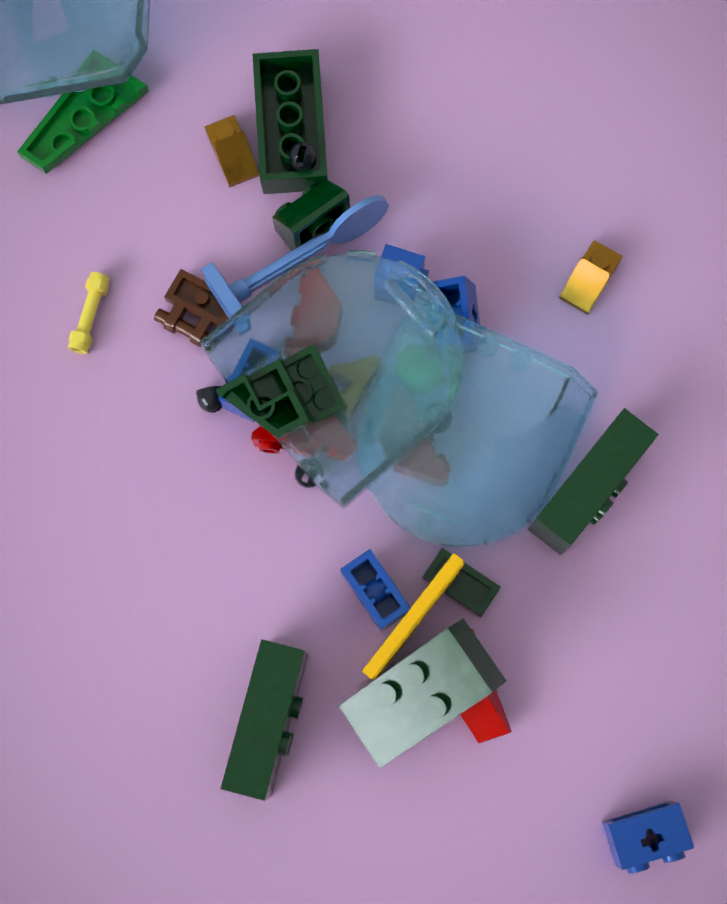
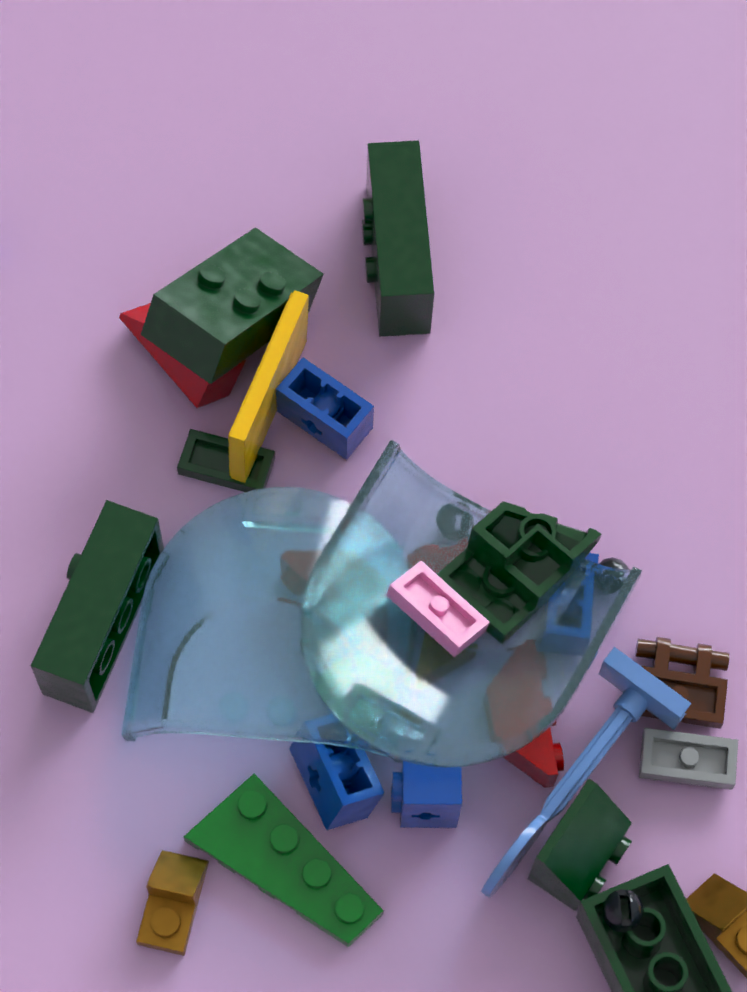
camera: 155 degrees right, 10 degrees down
(202, 249) = (688, 758): none -> light grey plate
(353, 380) = (437, 608): none -> bright pink plate
(511, 284) = (276, 853): none -> green wing

